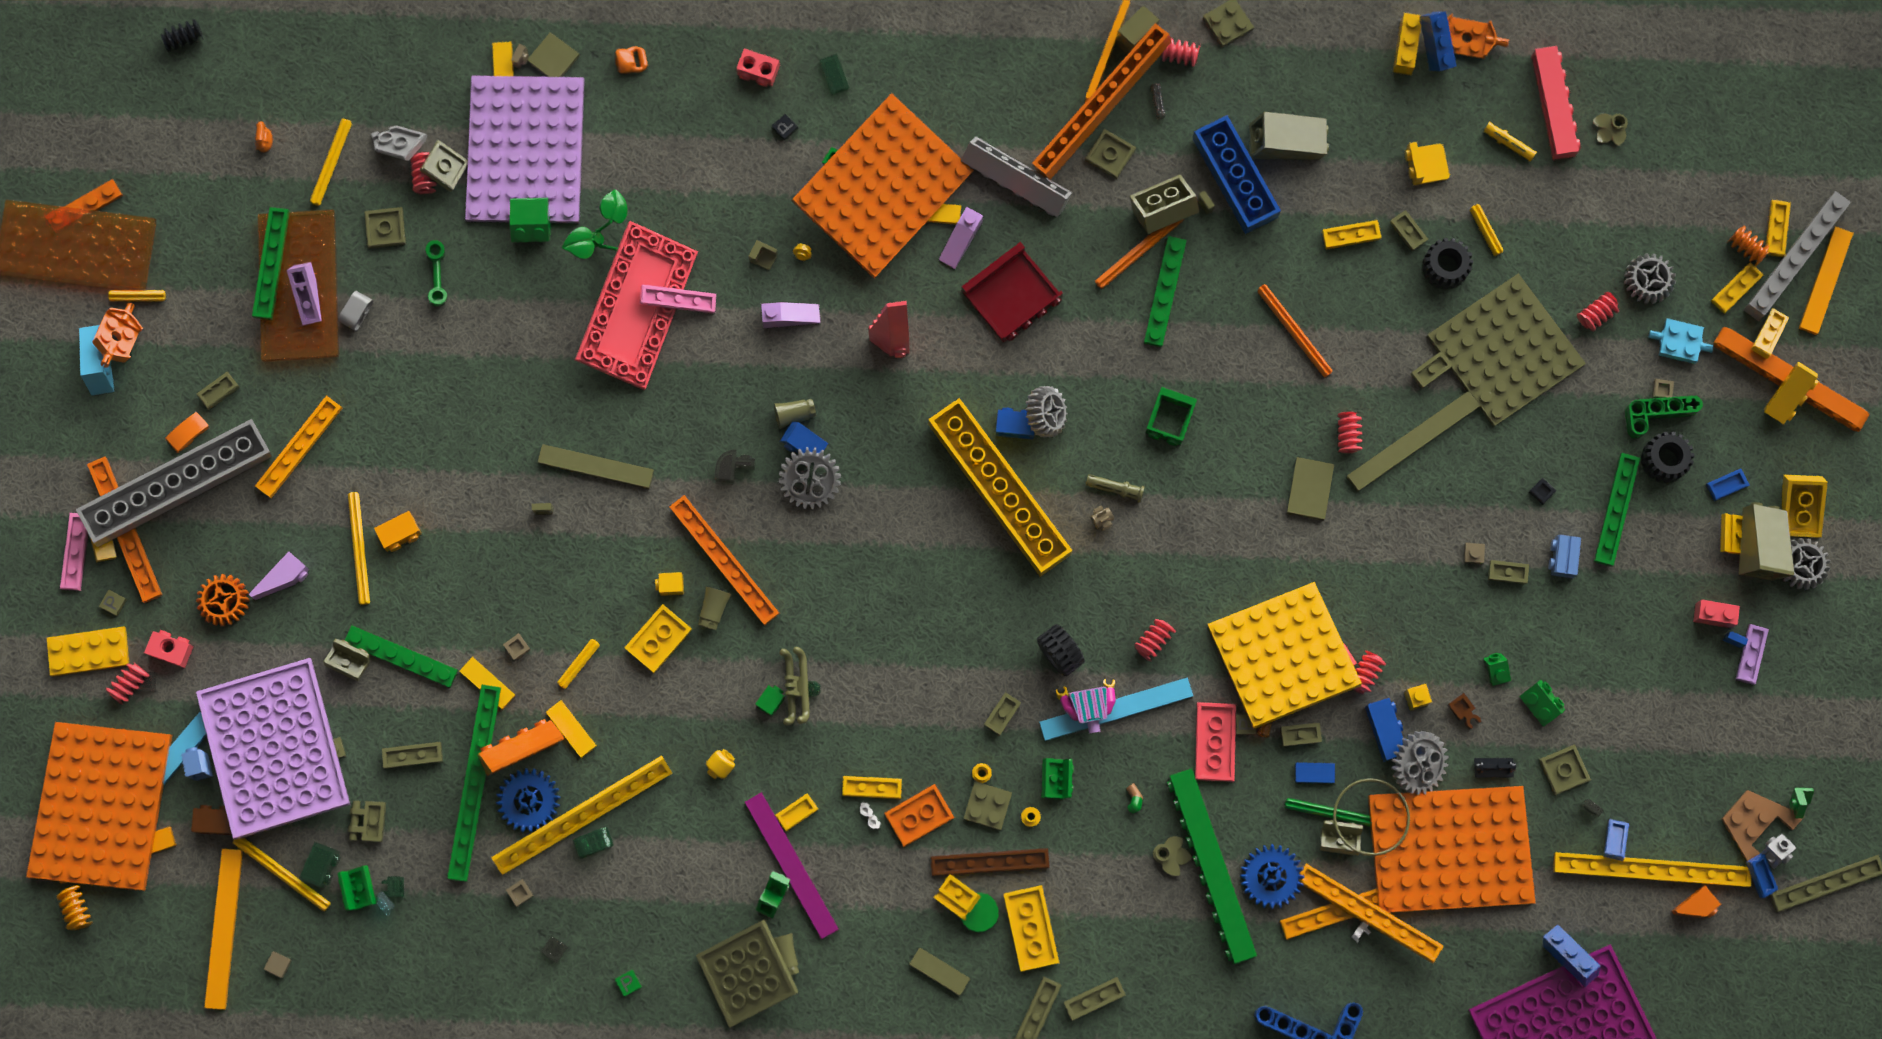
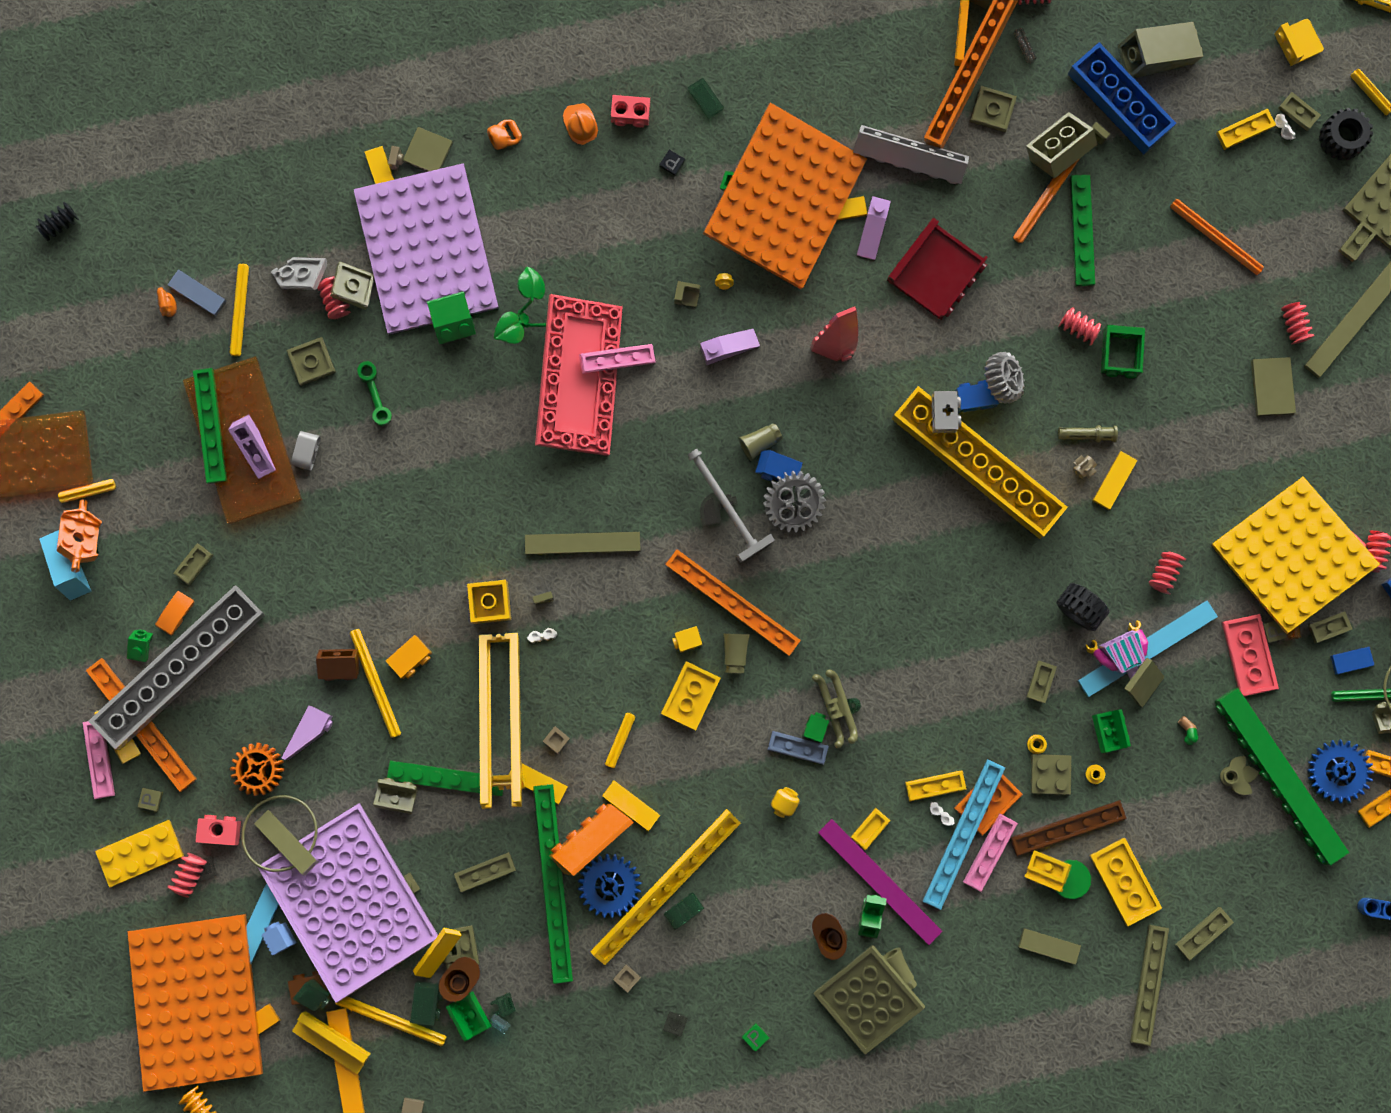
camera: 15 degrees left, 5 degrees up
(144, 454) = (139, 645): none -> green bracket
(213, 825) = (312, 995): none -> clear green slope
(218, 878) = (331, 1042): none -> yellow panel
(230, 676) = (286, 842): none -> olive tile
(238, 697) = (250, 813): none -> olive piece
(295, 135) = (197, 292): none -> sand blue tile
(298, 447) = (288, 599): light orange plate -> none
(327, 520) = (337, 664): none -> reddish brown brick
(343, 818) = (437, 953): none -> yellow tile
(358, 849) = (459, 979): none -> reddish brown piece
(465, 671) = (516, 780): none -> yellow piece
(489, 498) = (489, 601): none -> yellow brick
(538, 544) = (548, 634): none -> white piece
(707, 68) = (580, 123): none -> orange piece
(726, 902) = (829, 936): none -> reddish brown piece
(748, 716) = (798, 747): none -> sand blue tile
(757, 510) = (752, 544): none -> light grey tile
(885, 840) = (963, 834): none -> medium azure tile
(906, 865) = (990, 852): none -> bright pink tile
(976, 417) = (941, 422): none -> light grey brick
(1101, 739) = (1144, 682): none -> olive tile
(1129, 539) = (1114, 480): none -> yellow tile
(1135, 382) = (1080, 325): none -> coral piece
(1390, 247) = (1286, 131): none -> white piece

